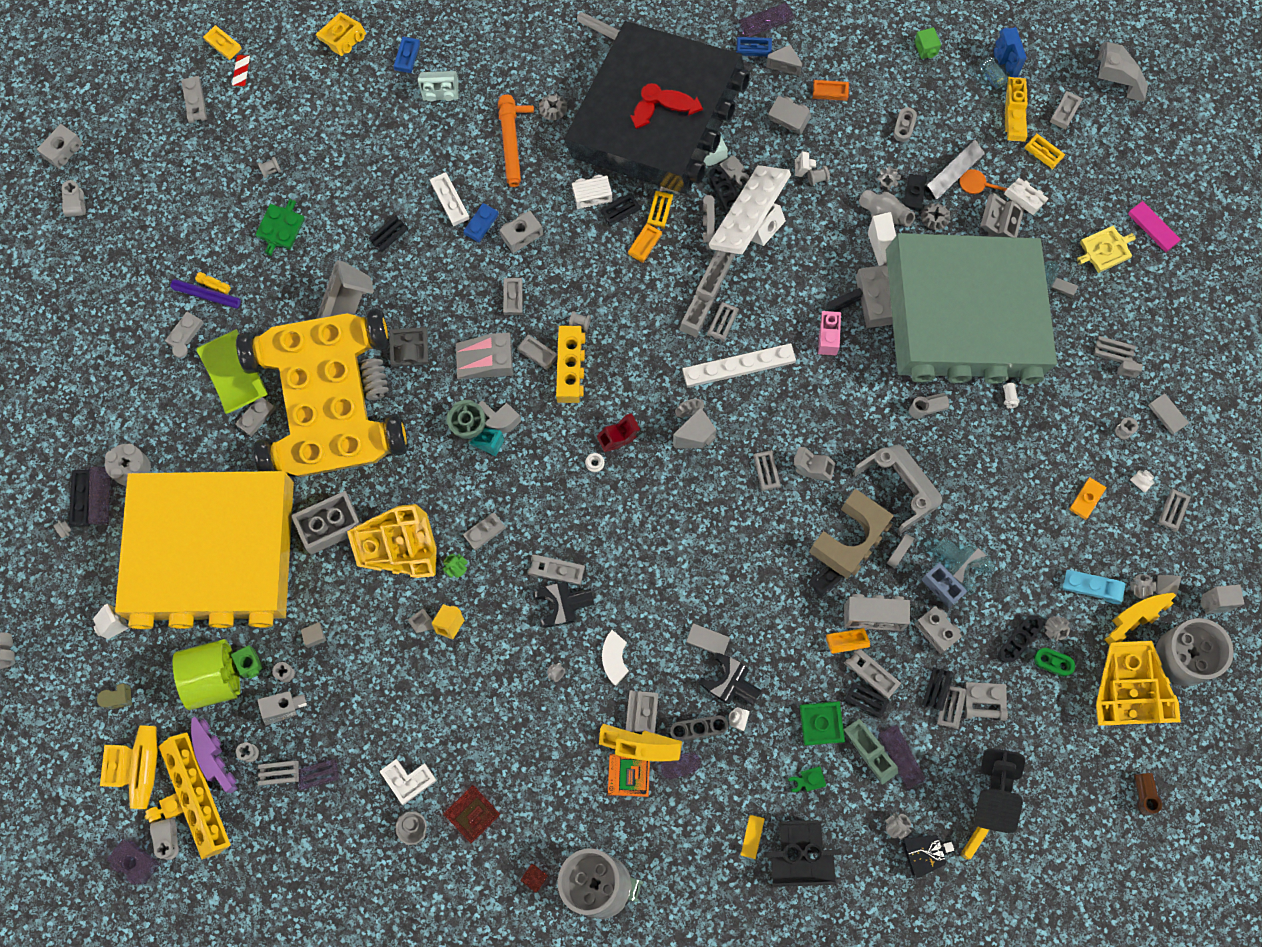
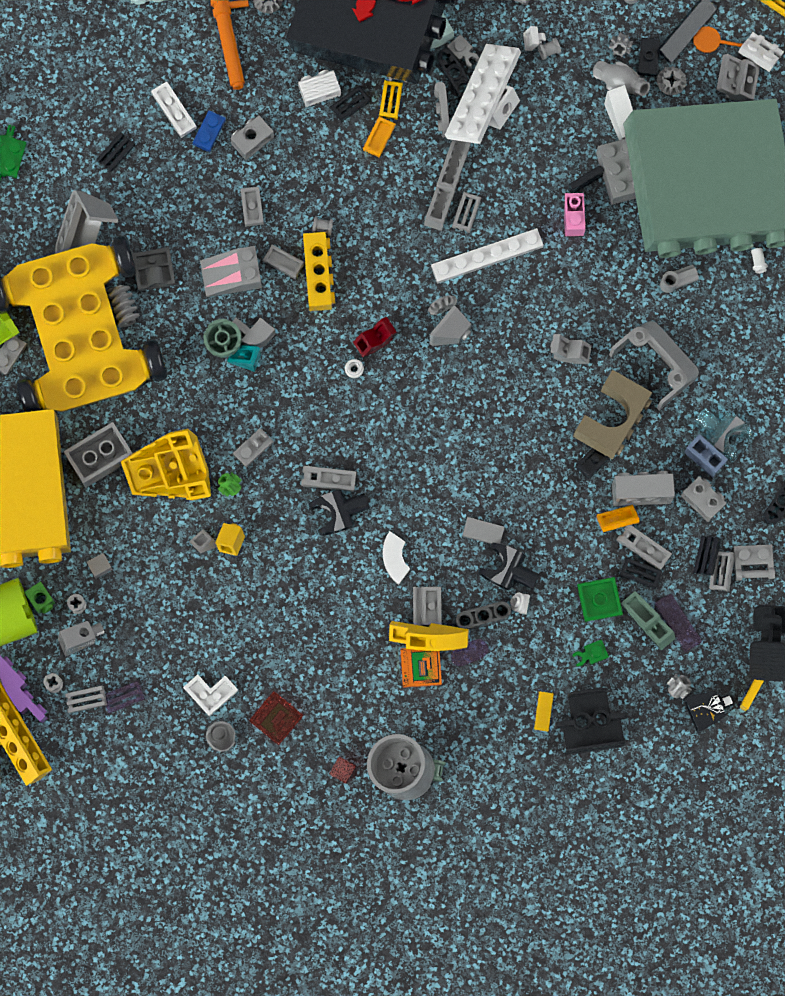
camera: 10 degrees left, 5 degrees up
(555, 672) = (340, 577): light grey plate -> none
(770, 486) = (529, 375): light grey tile -> none
(900, 551) = (661, 426): light grey beam -> none

